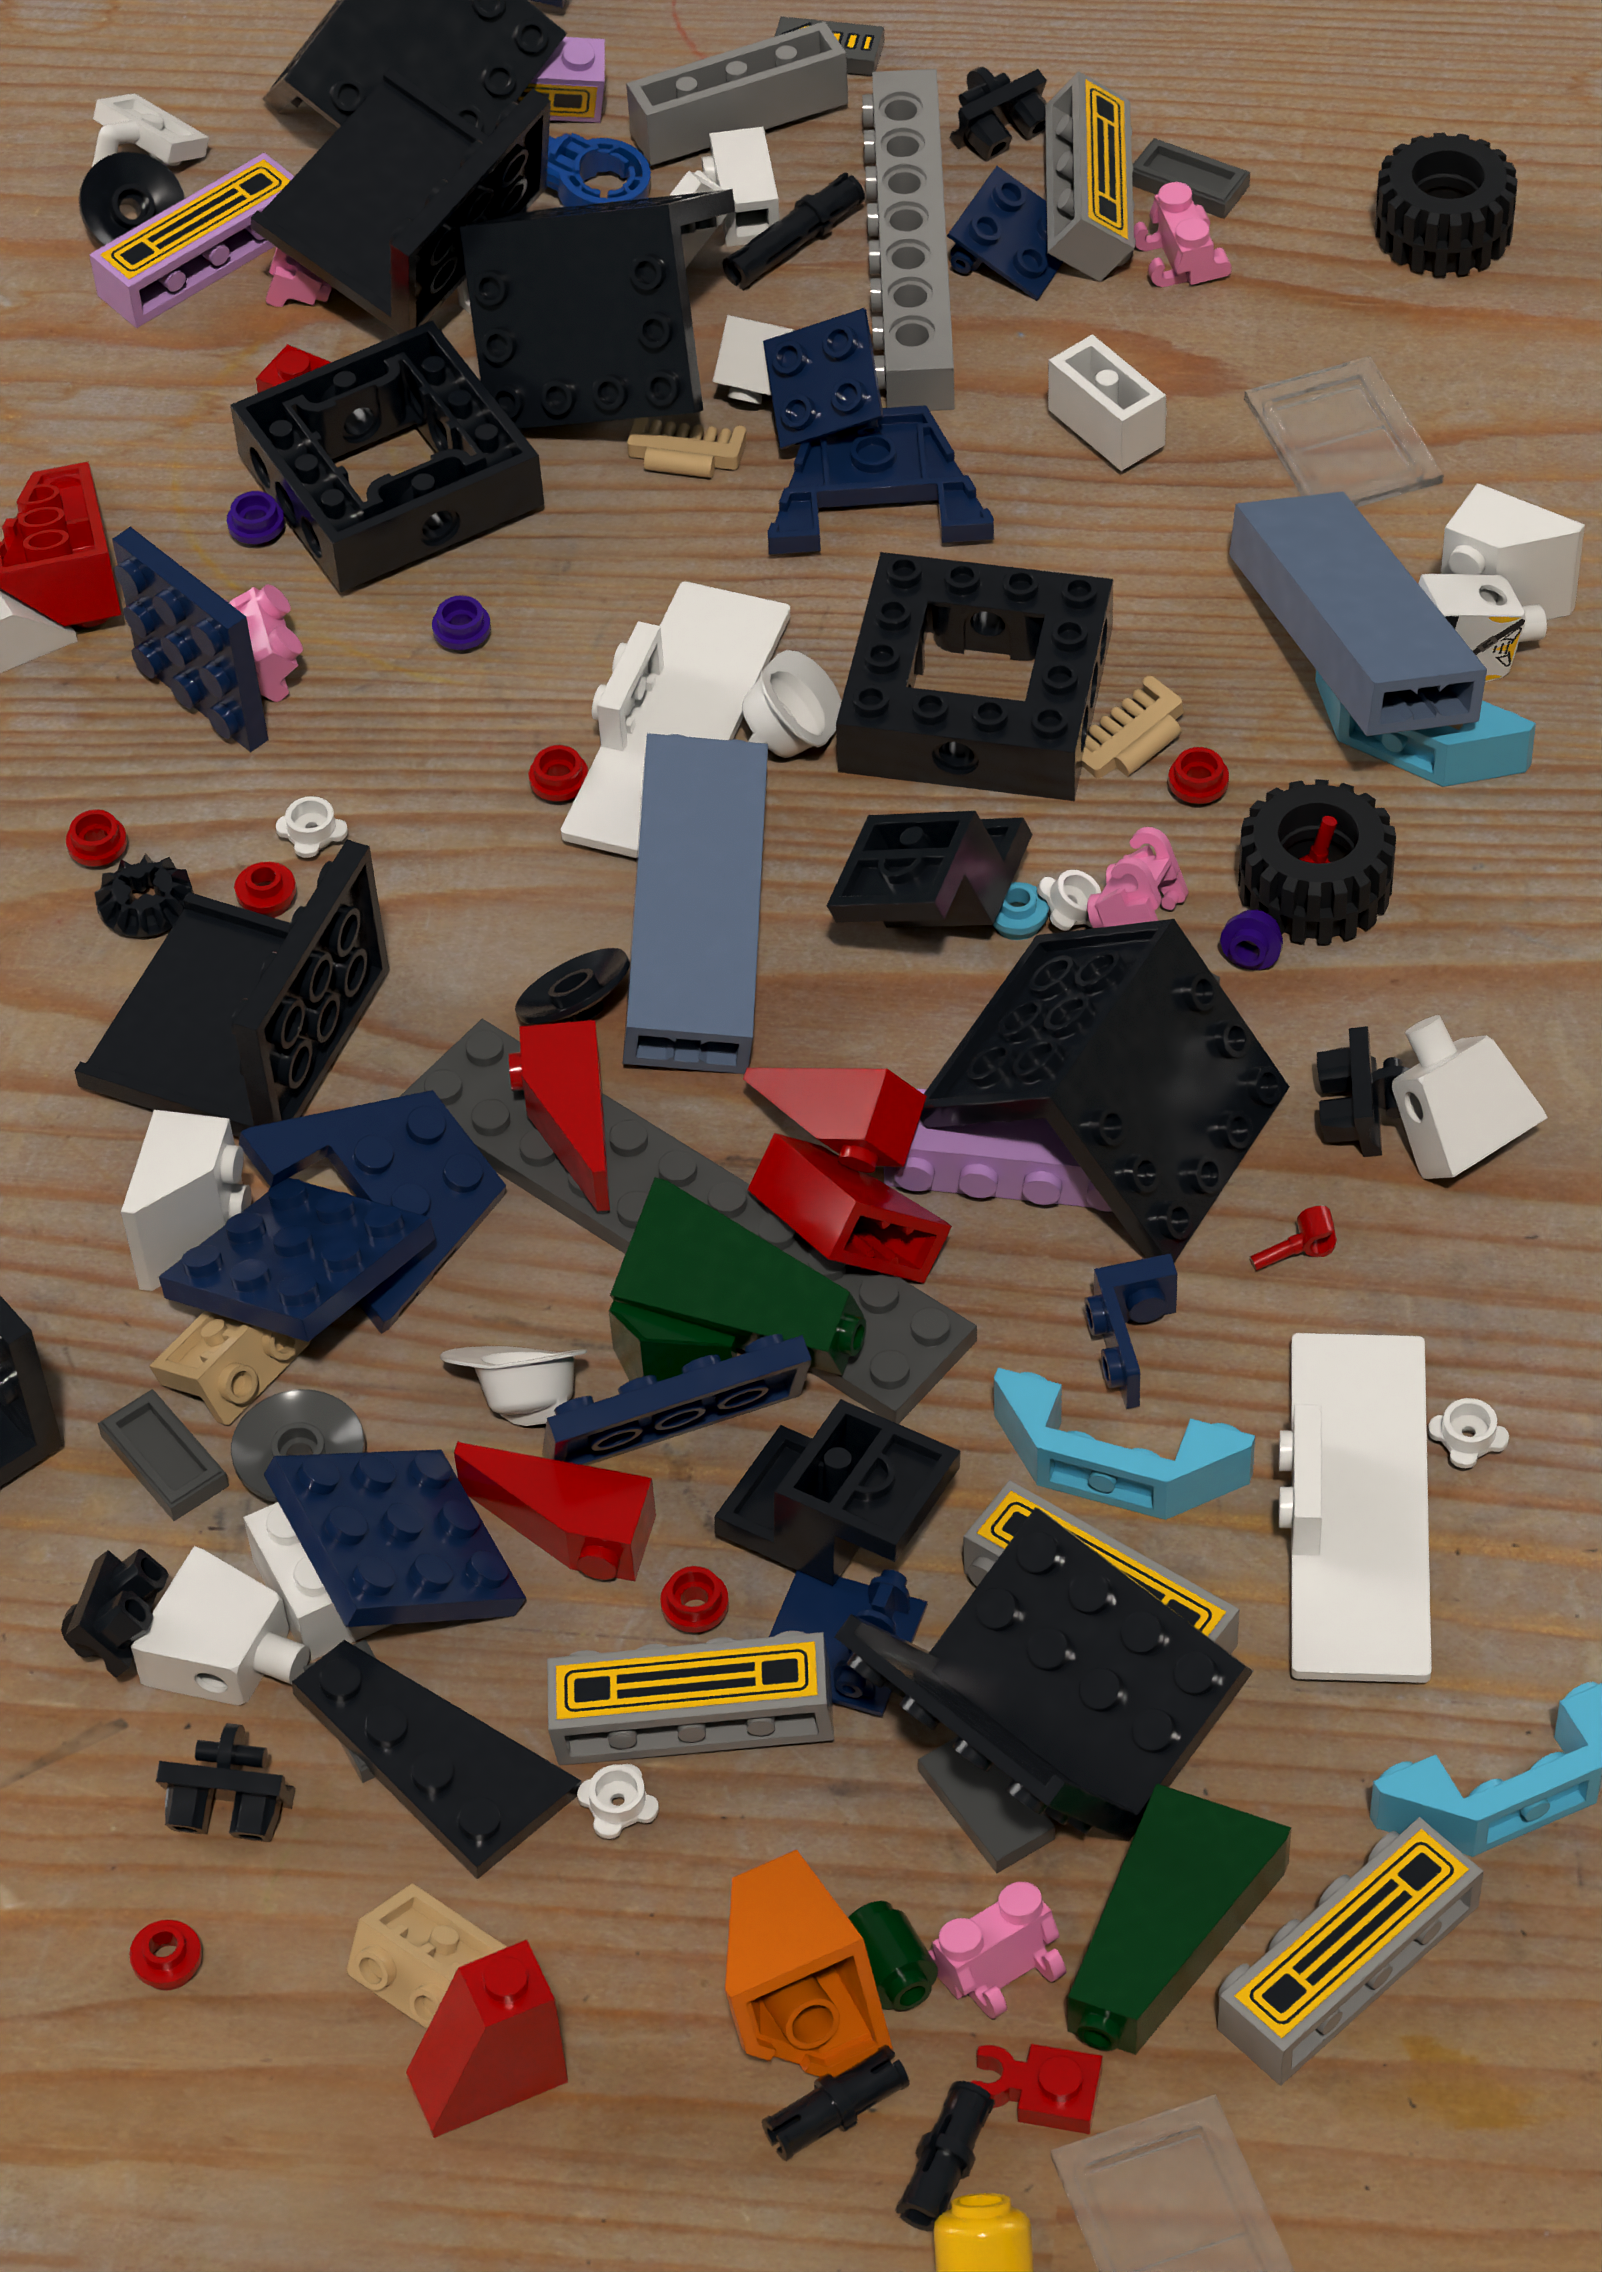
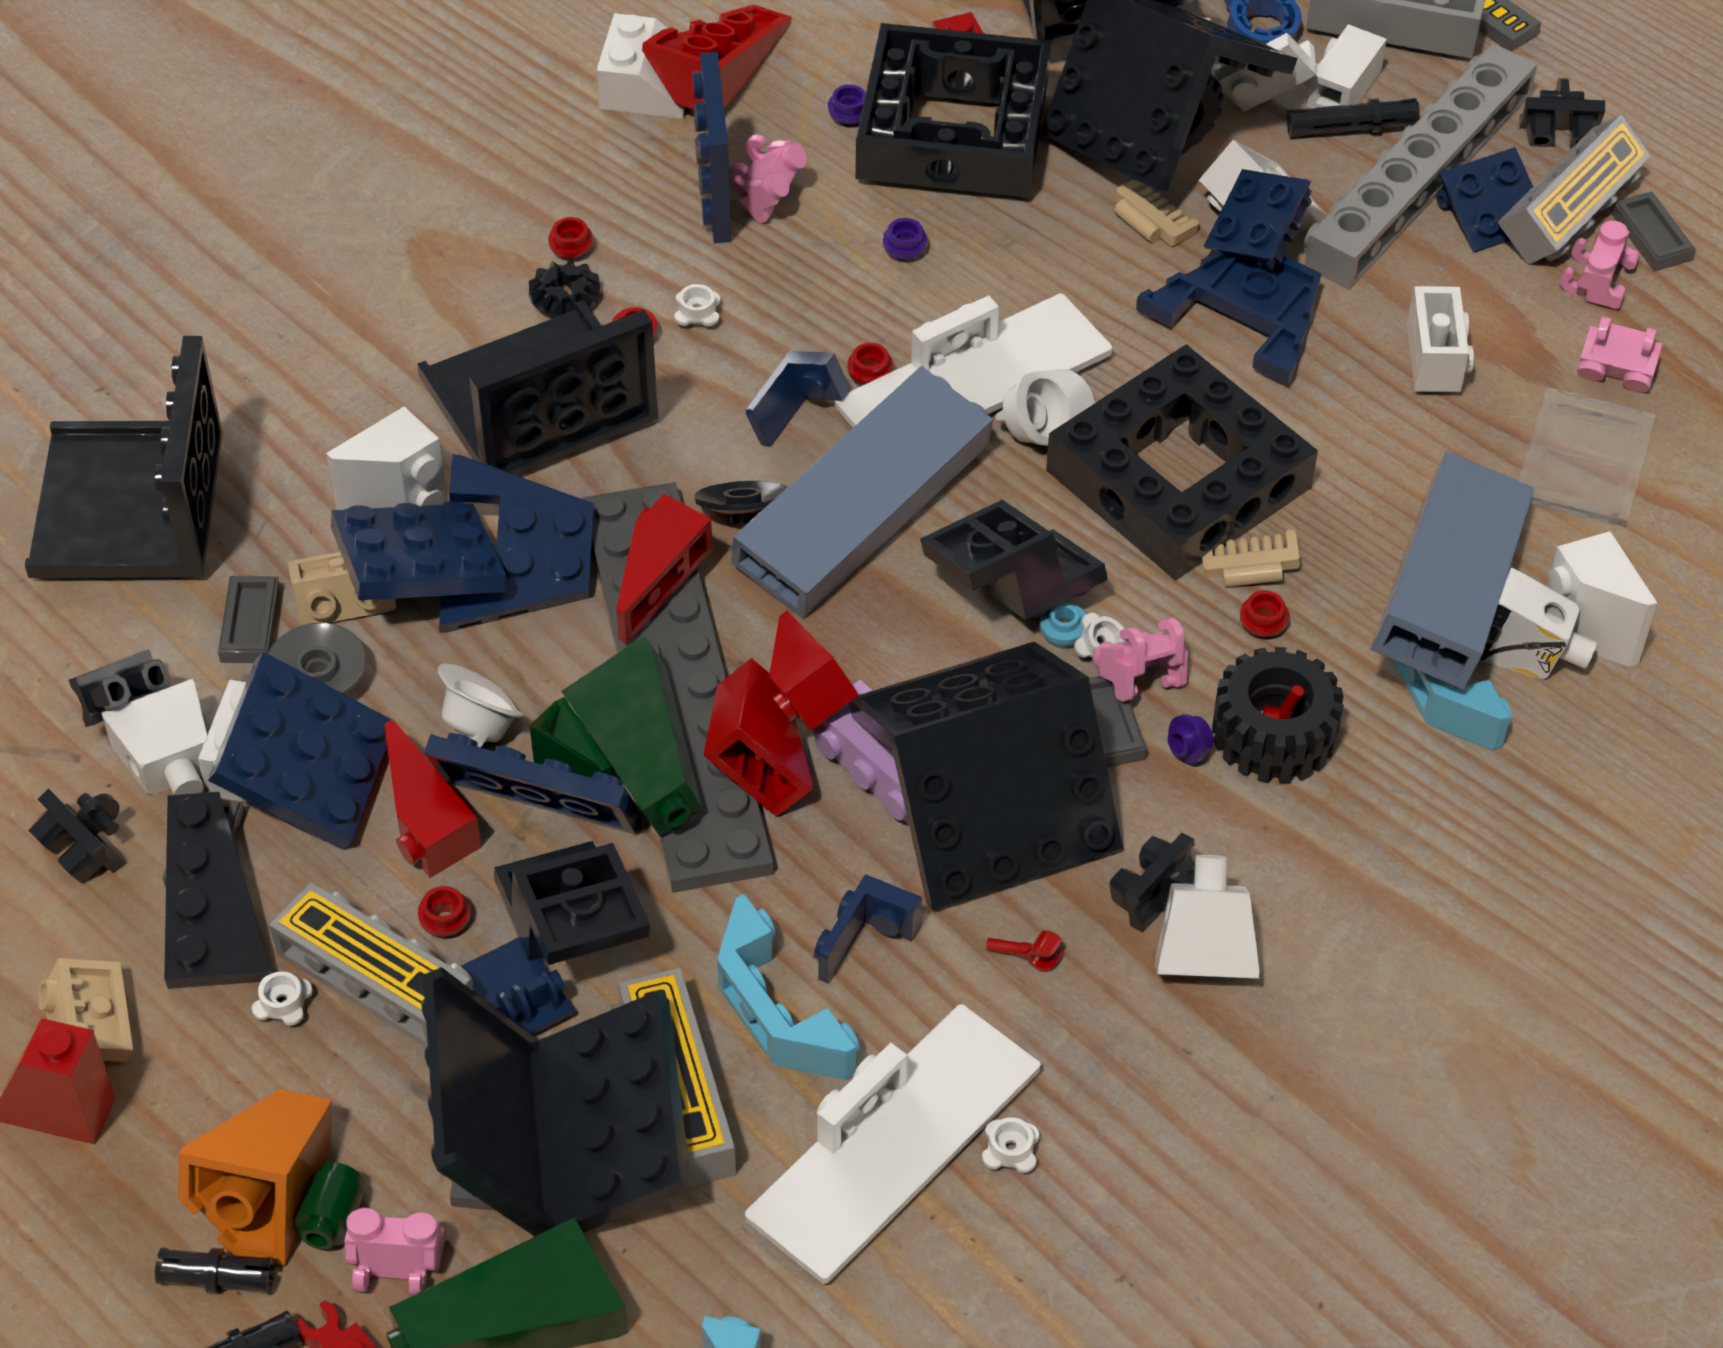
camera: 35 degrees right, 0 degrees up
(510, 826) = (796, 378): none -> dark blue bracket
(1284, 315) = (1620, 354): none -> bright pink piece

